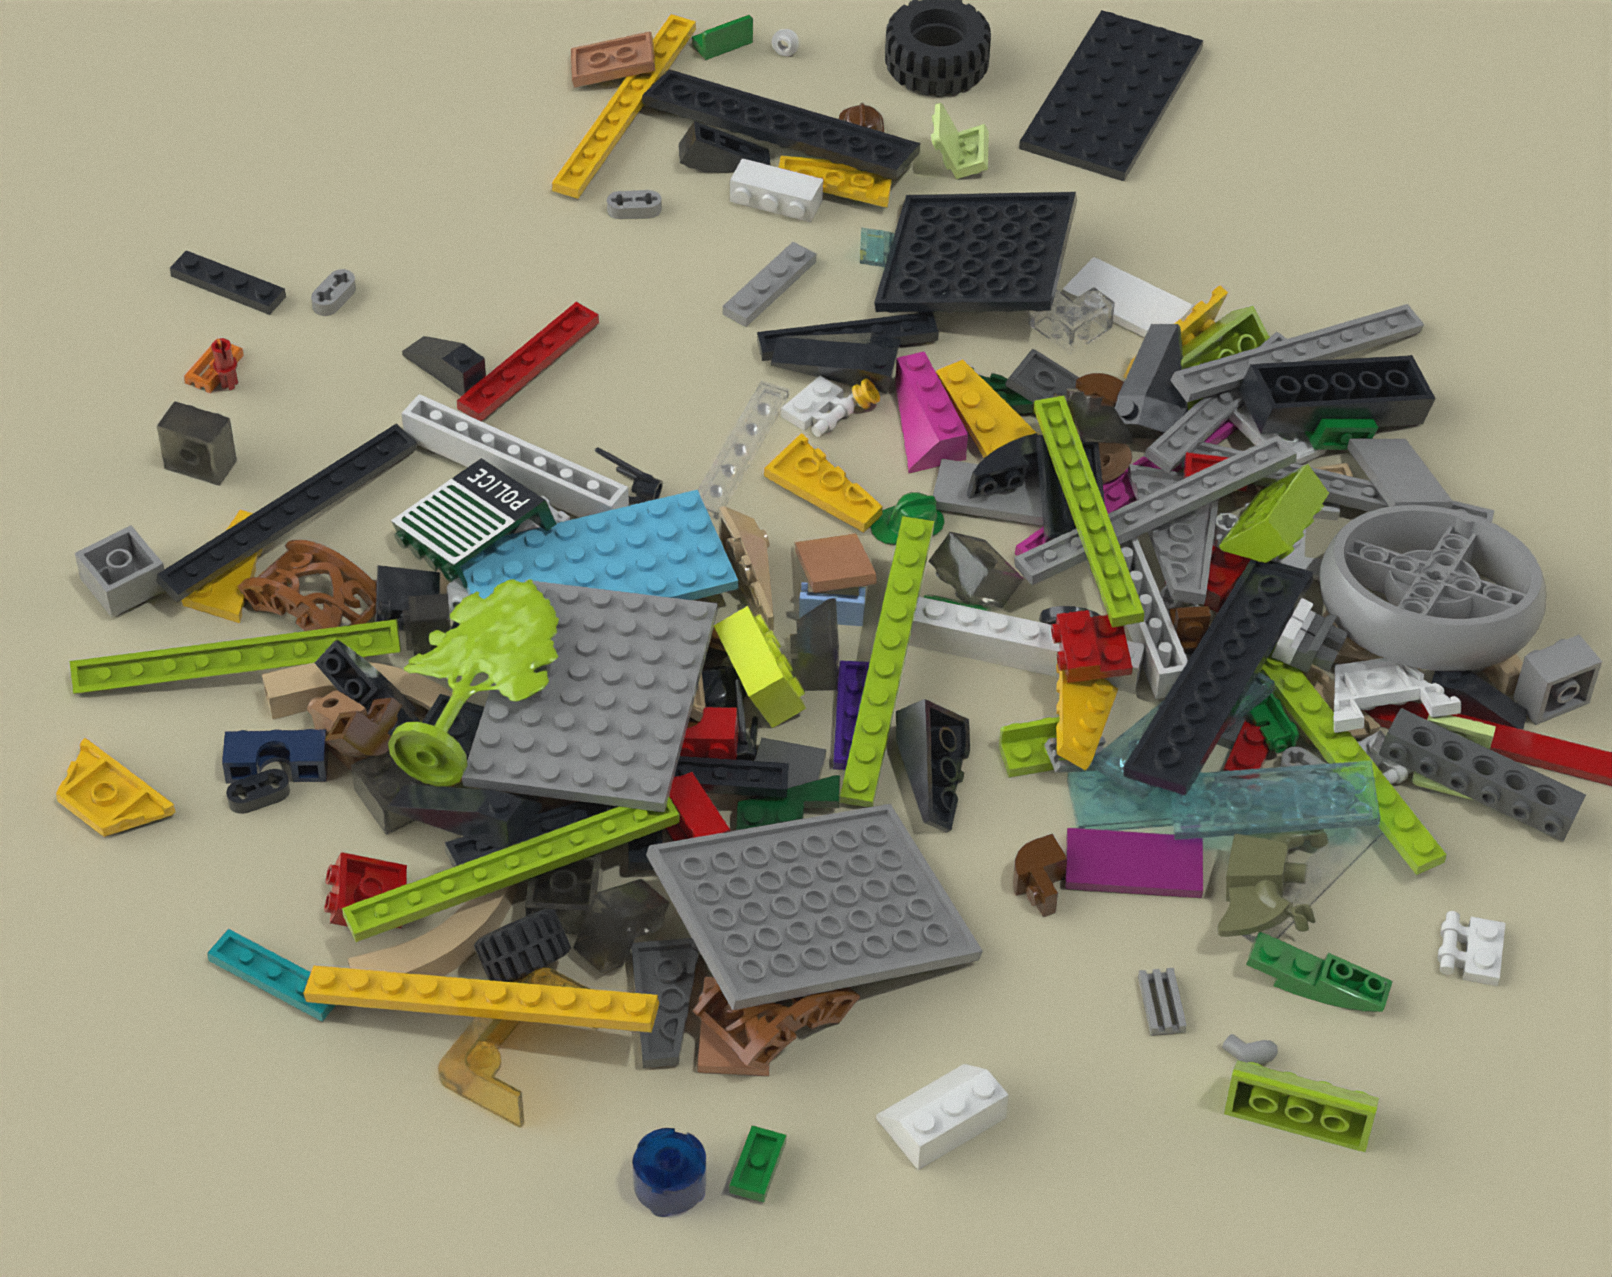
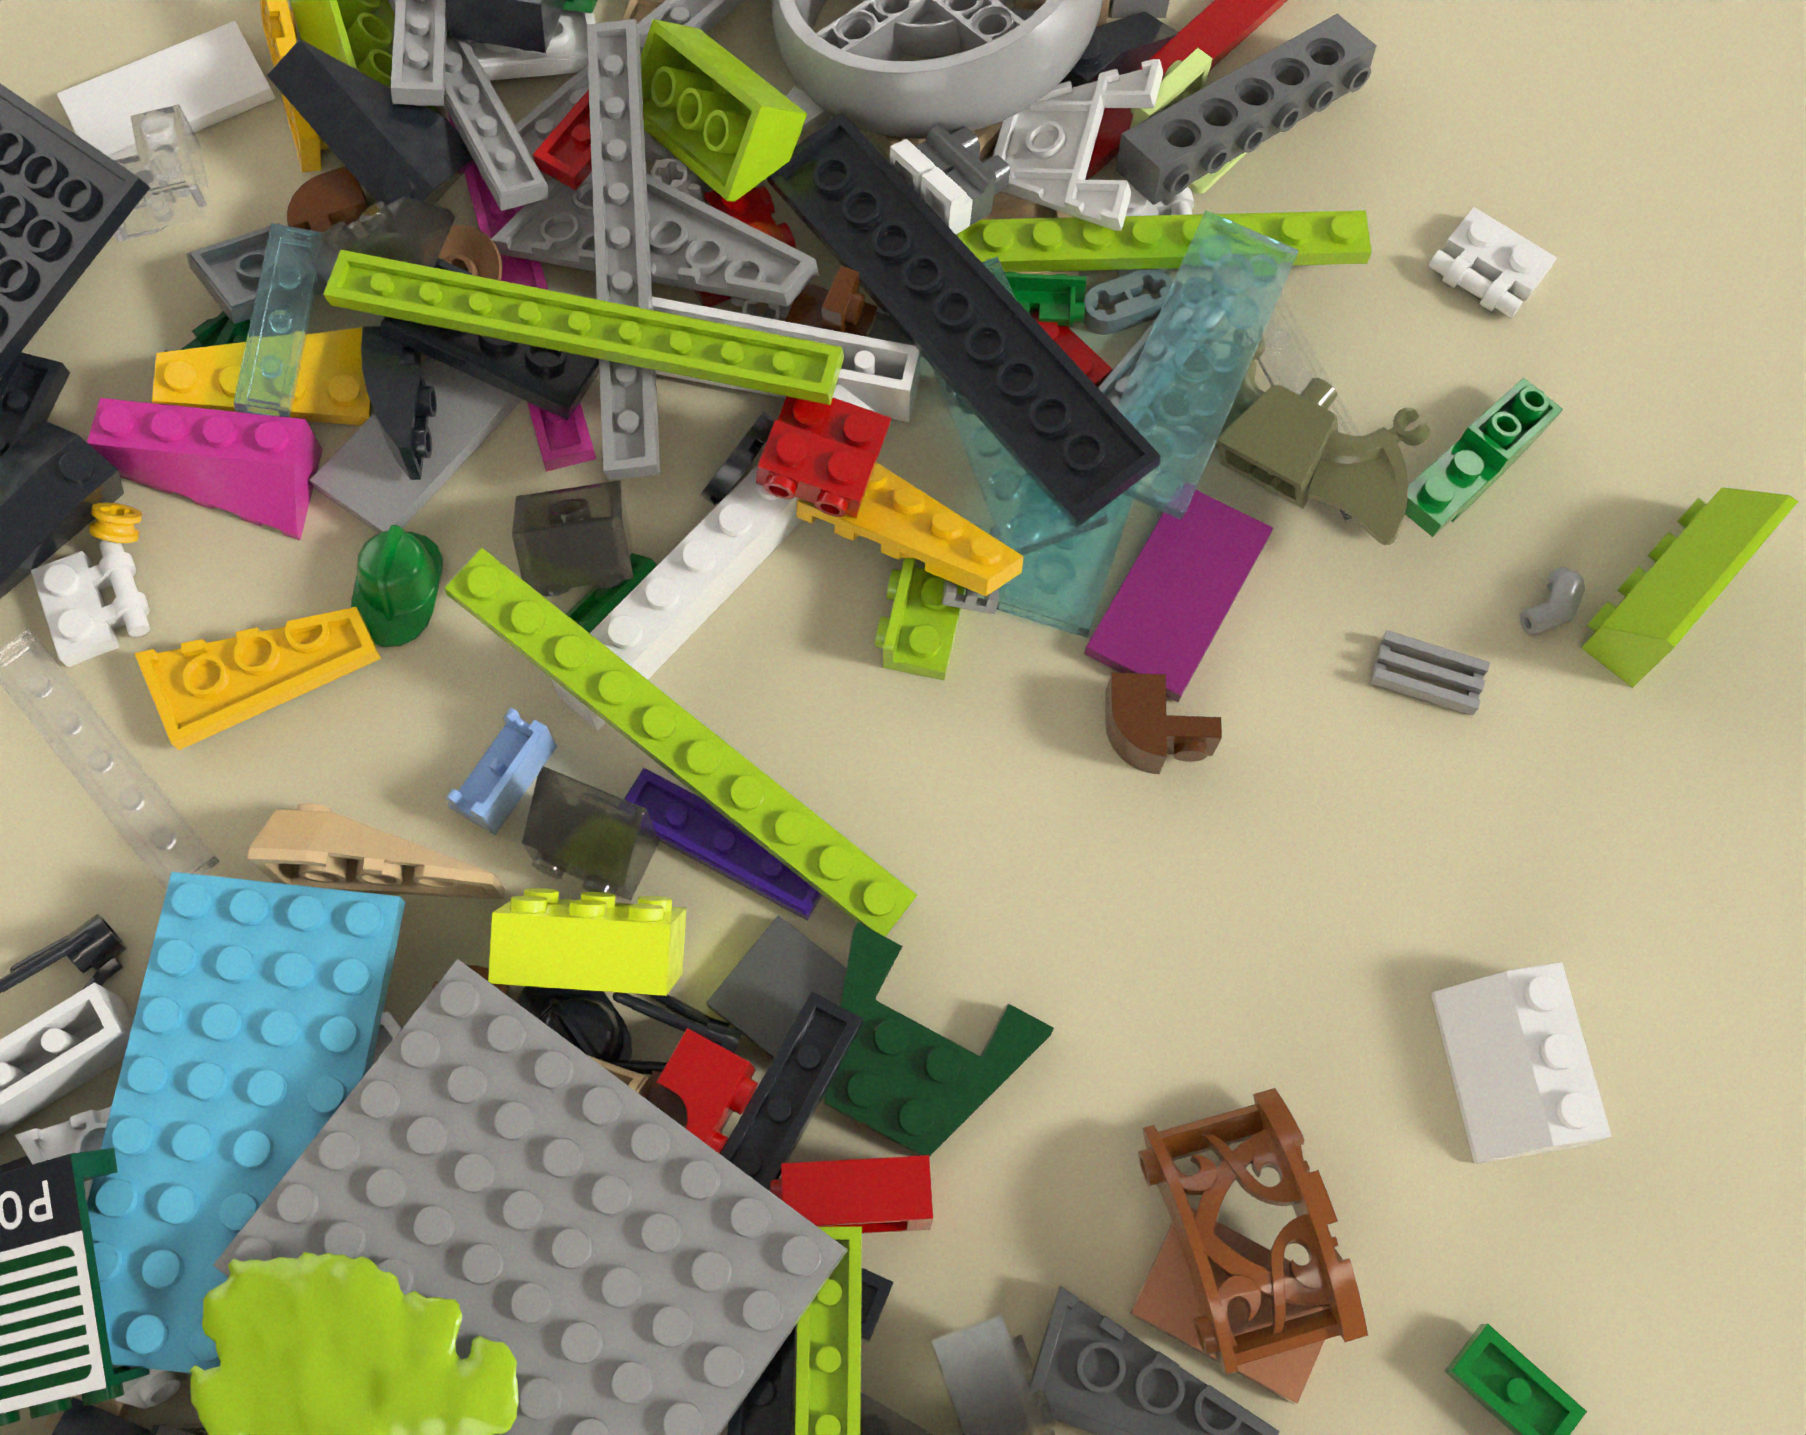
camera: 65 degrees left, 20 degrees up
(812, 905) = (1113, 1104): light grey plate -> none
(835, 563) = (433, 729): nougat tile -> none
(933, 750) = (862, 768): black wedge -> none
(1011, 398) = (279, 322): none -> clear light blue tile

